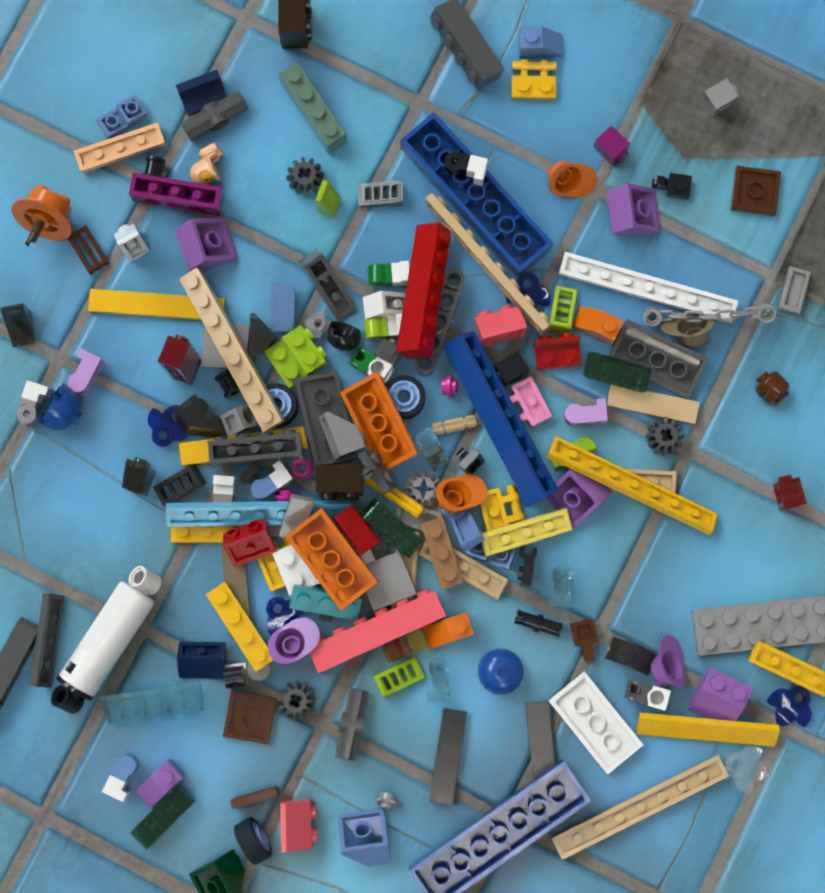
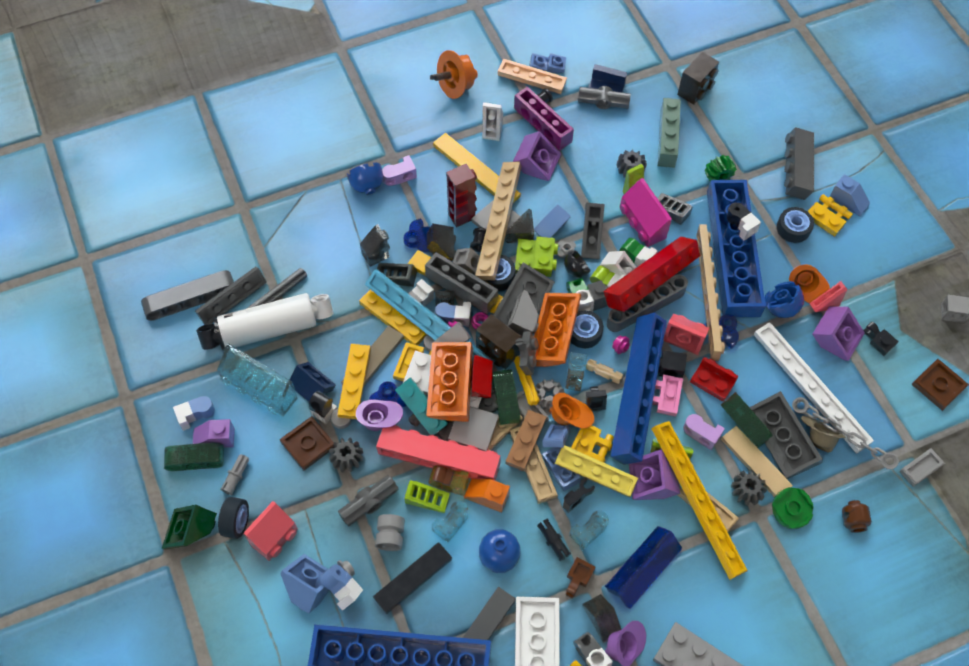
camera: 40 degrees right, 20 degrees down
(19, 324) = (387, 119): clear smoke slope -> none
(31, 401) = (350, 162): leg -> none
(84, 598) = (281, 288): none -> dark grey axle
(97, 265) = (461, 125): reddish brown tile -> none
(205, 169) = (574, 118): light nougat piece -> none
(214, 800) = (235, 475): none -> light grey axle
(248, 542) = (405, 333): red bracket -> none
(254, 797) = (261, 493): reddish brown tile -> none
(364, 227) = (645, 213): none -> dark pink slope
(397, 115) = (720, 168): none -> green gear
(397, 737) = (389, 535): none -> light grey wheel
(399, 817) = (341, 585): none -> leg
(512, 109) = (795, 224): none -> wheel
(560, 324) = (737, 358): lime slope -> none
(562, 218) = (785, 300): none -> blue cylinder
(597, 324) = (757, 383): orange slope -> none
(600, 181) = (831, 297): none -> coral slope
(612, 145) = (856, 284): magenta brick -> none
(630, 582) = (644, 566): none -> clear blue panel
(714, 423) = (792, 508): none -> green tile
(789, 492) = (815, 598): clear red brick -> none

